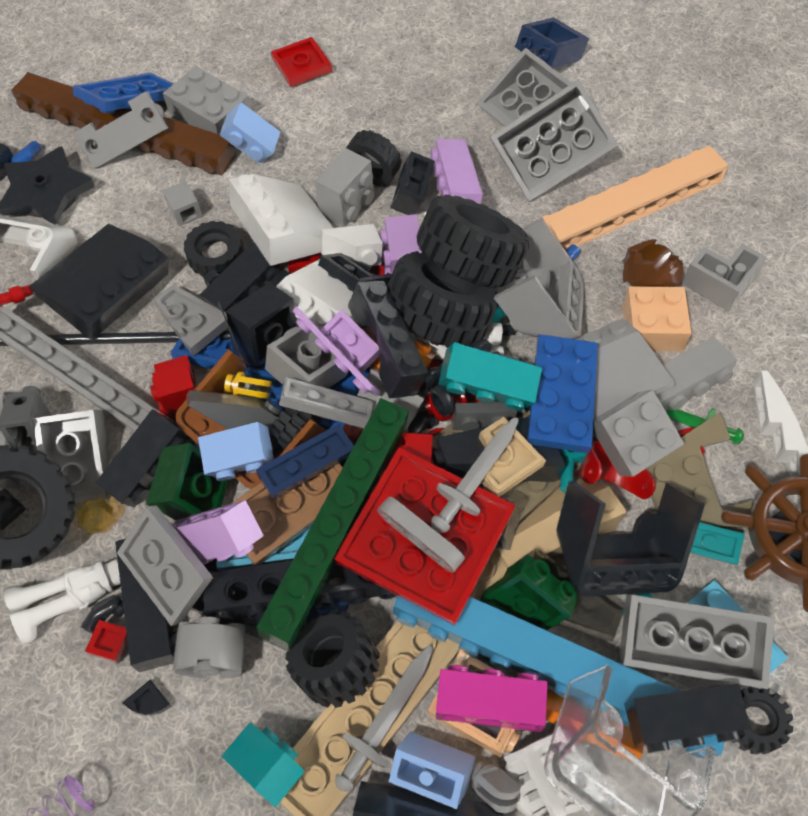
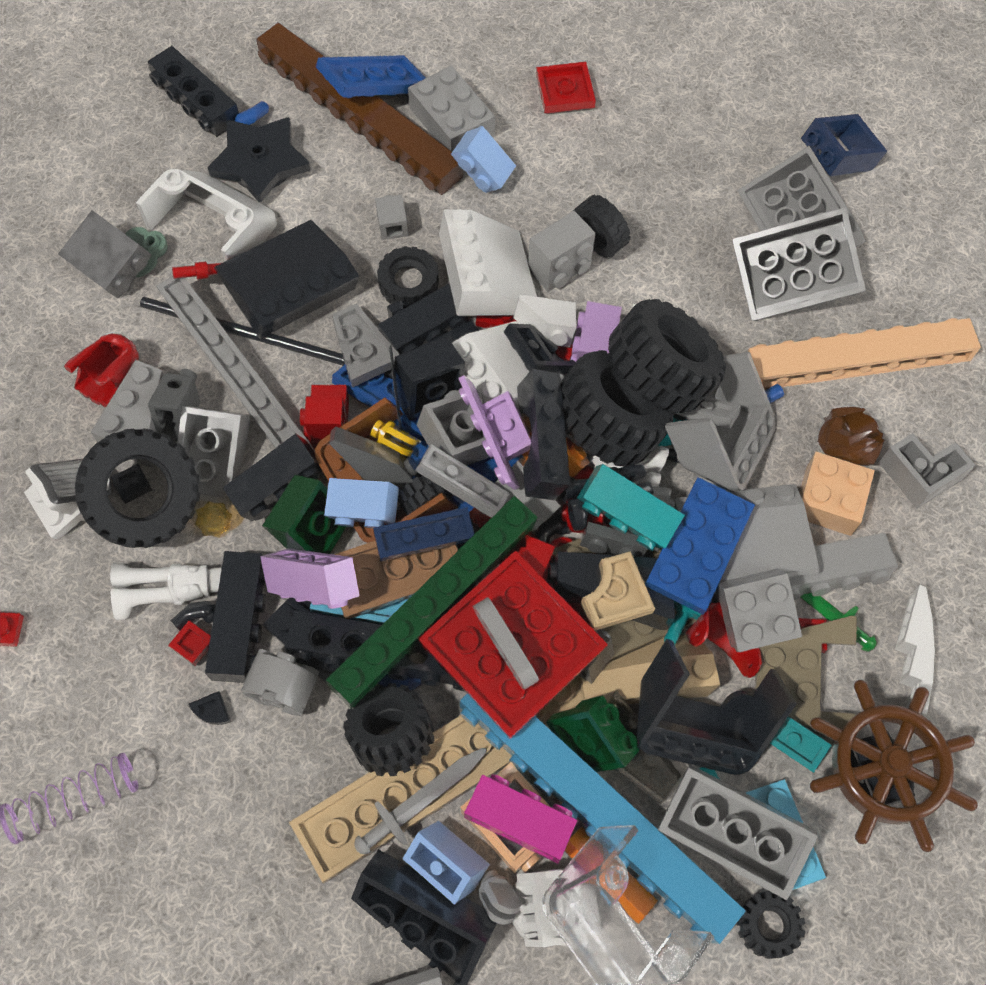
camera: 15 degrees right, 5 degrees up
(123, 132) = (356, 121): light grey brick -> none
(164, 565) = (261, 591): light grey plate -> none
(264, 763) = (296, 803): teal brick -> none
(412, 184) = (633, 267): black brick -> none
(455, 169) = (681, 268): lavender brick -> none
(459, 497) = (556, 618): light grey sword -> none
(687, 717) = (698, 899): black brick -> none

